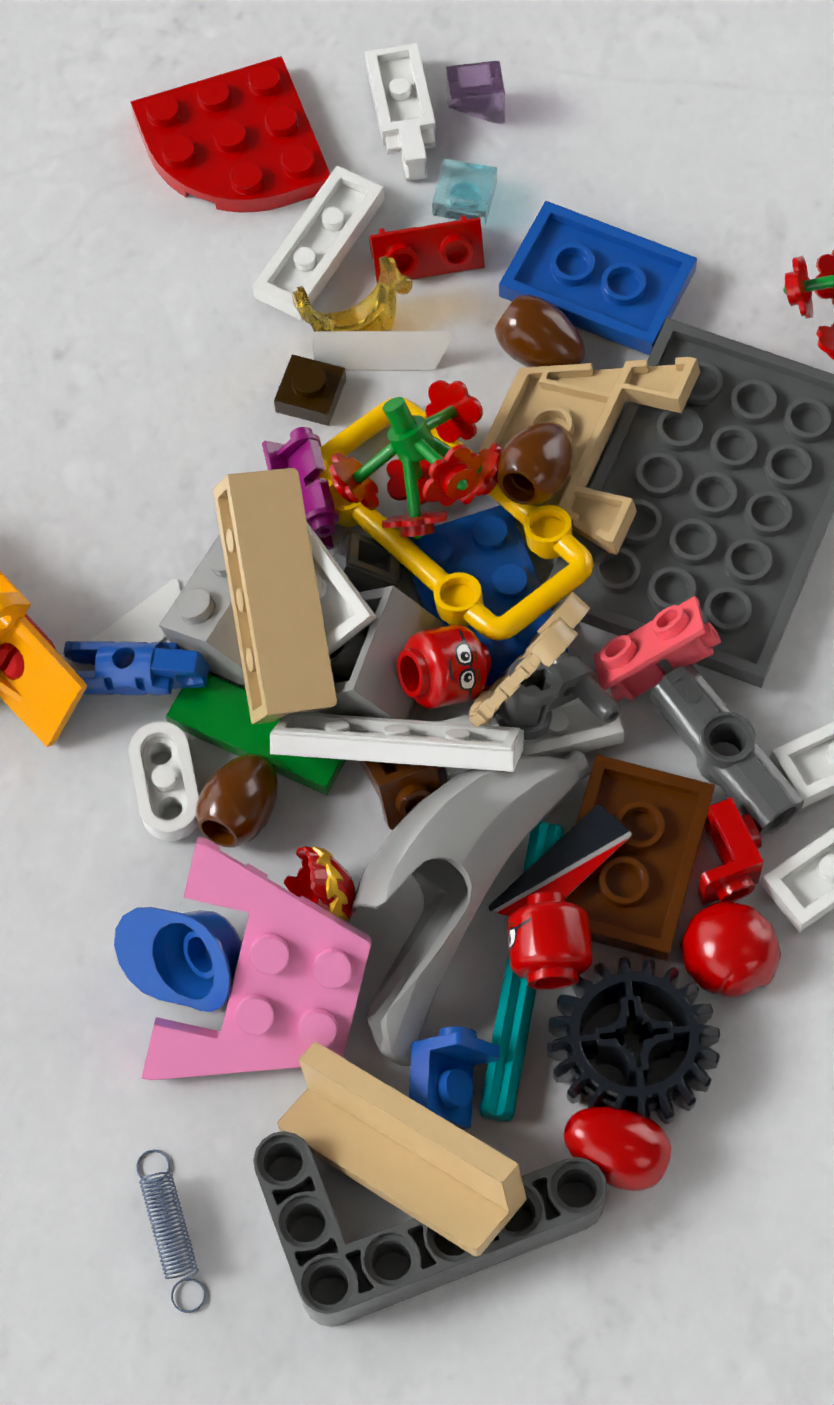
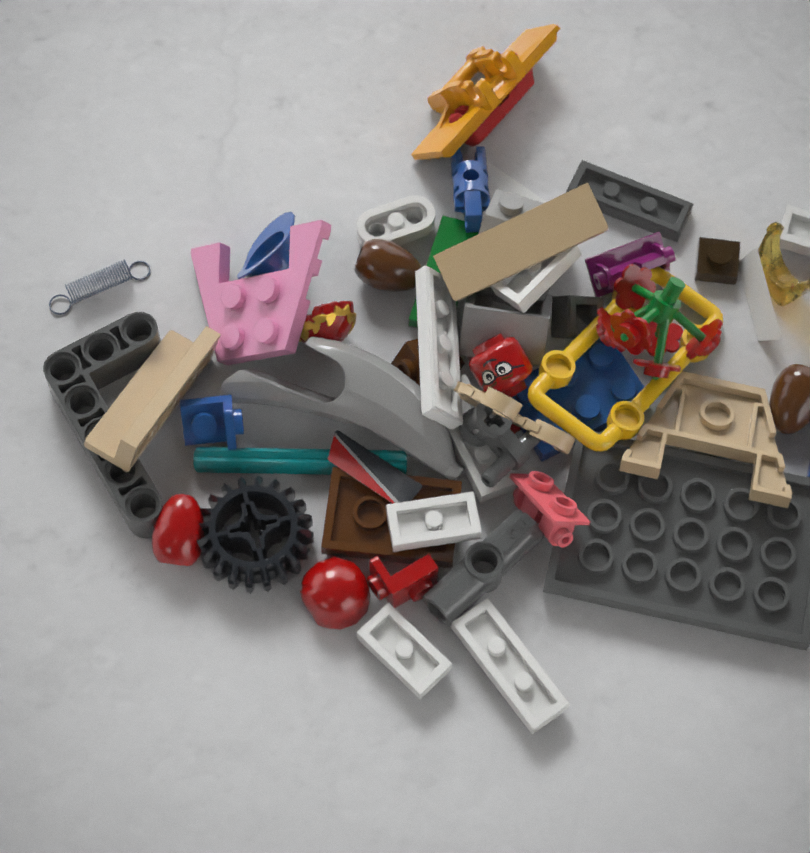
camera: 75 degrees right, 0 degrees up
(187, 479) = (634, 201): none -> dark grey tile
(535, 463) = (671, 397): reddish brown animal -> none
(549, 941) = (310, 463): red head -> none
(662, 793) = (433, 521): none -> white plate

